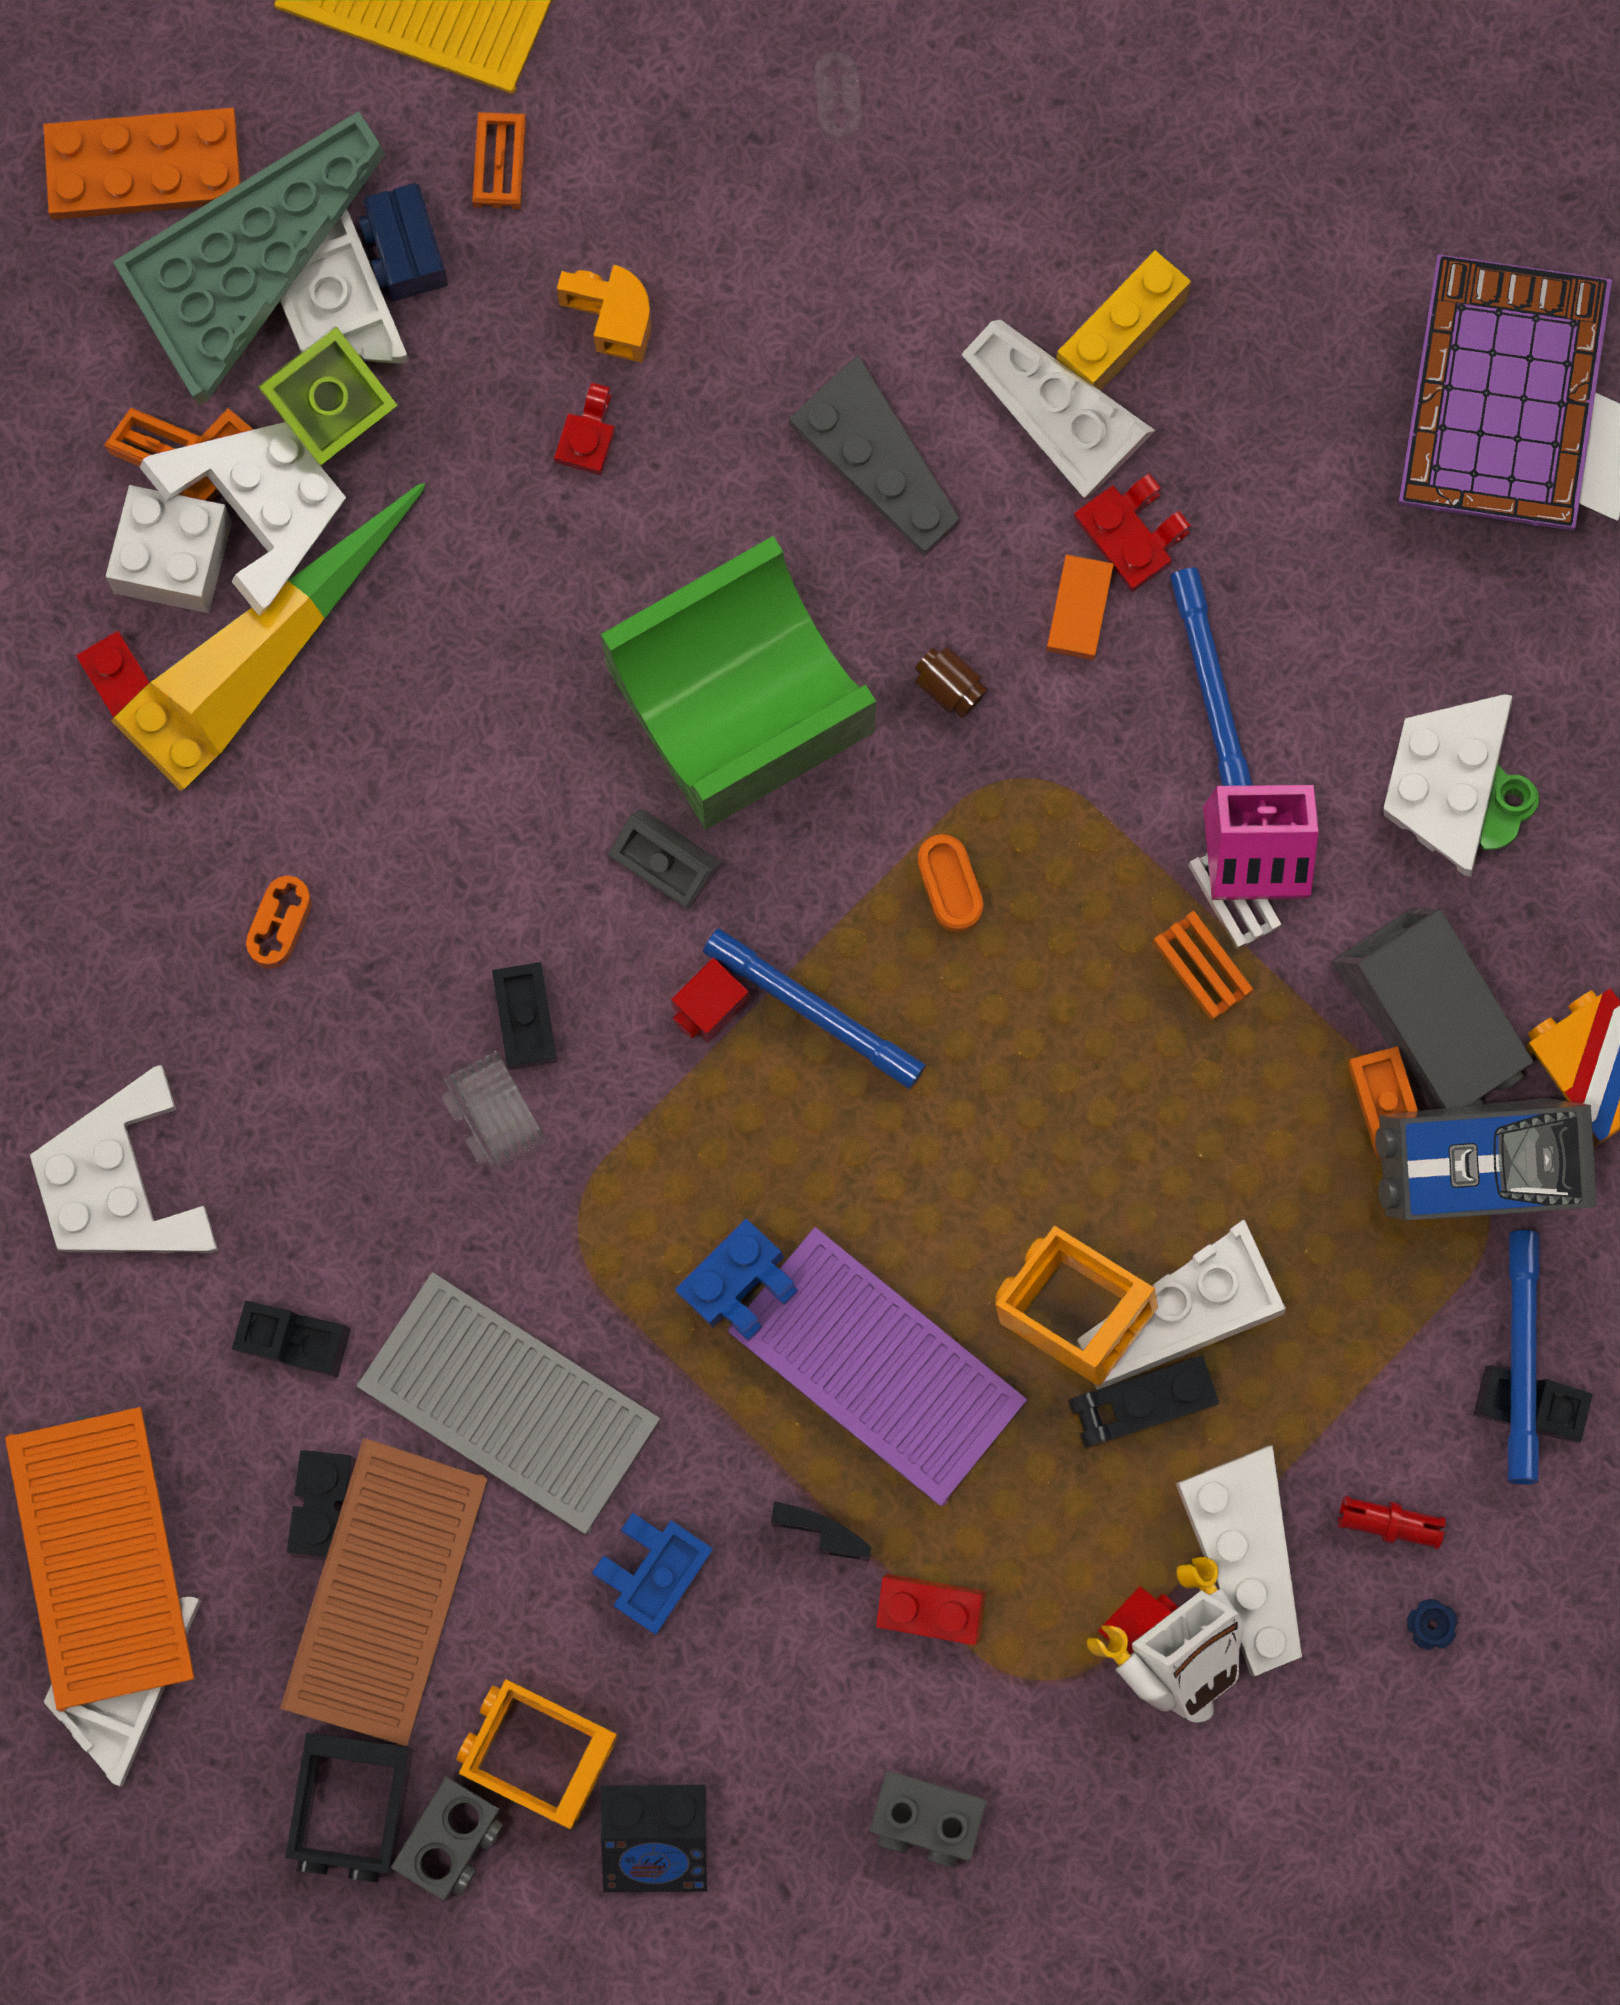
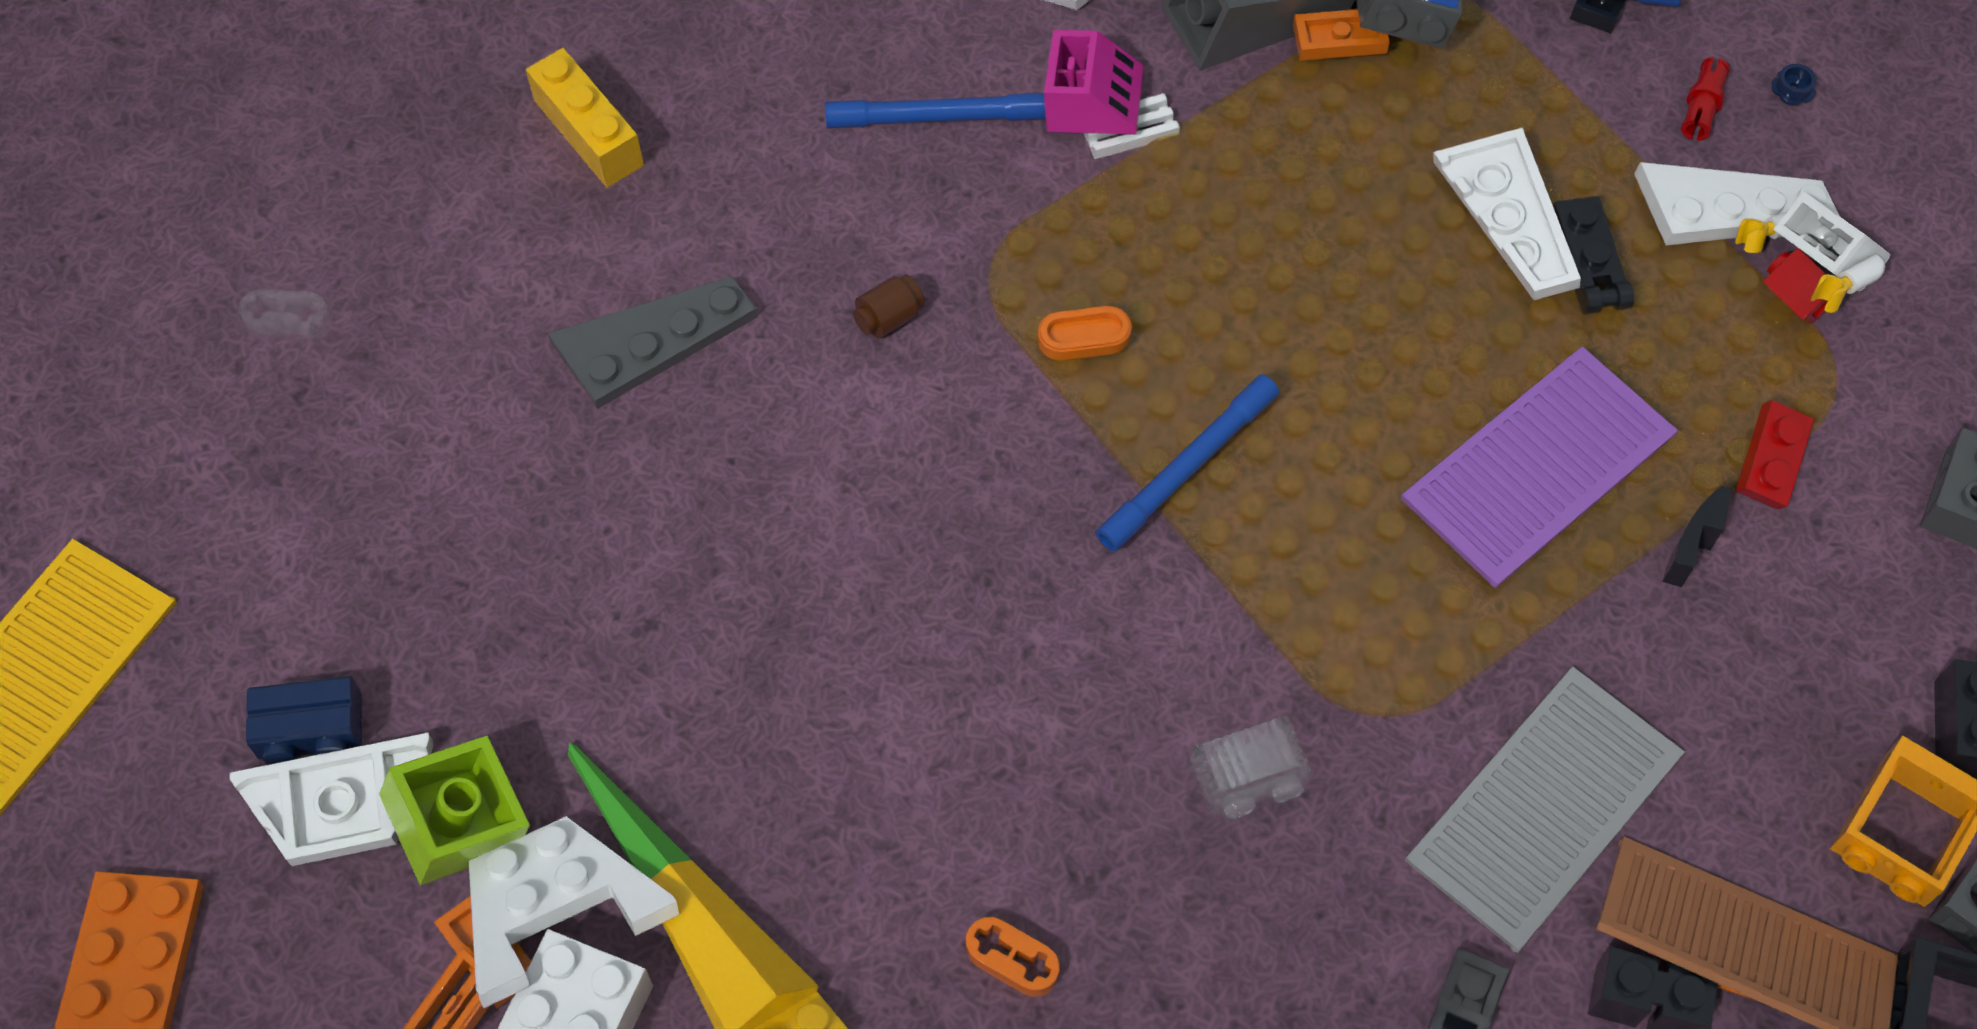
camera: 80 degrees left, 15 degrees down
(233, 260) = (268, 885): sand green wing -> none
(498, 198) = (282, 631): orange tile -> none
(524, 1016) = (1152, 726): black plate -> none
(587, 439) = (561, 585): red plate -> none
(621, 306) = (437, 524): light orange brick -> none
(662, 1576) = (1734, 684): blue plate -> none
(664, 858) = (1011, 579): dark grey slope -> none
(708, 1001) = (1165, 553): red brick -> none
(730, 1274) = (1443, 572): blue plate -> none
(736, 684) = (864, 474): bright green piece -> none
(1061, 411) = (653, 174): white wing -> none
(1080, 607) = (838, 199): orange tile -> none
(1116, 1333) = (1537, 241): light orange window -> none
(1124, 539) = (781, 155): red plate -> none
(1177, 931) = (1192, 144): orange tile -> none

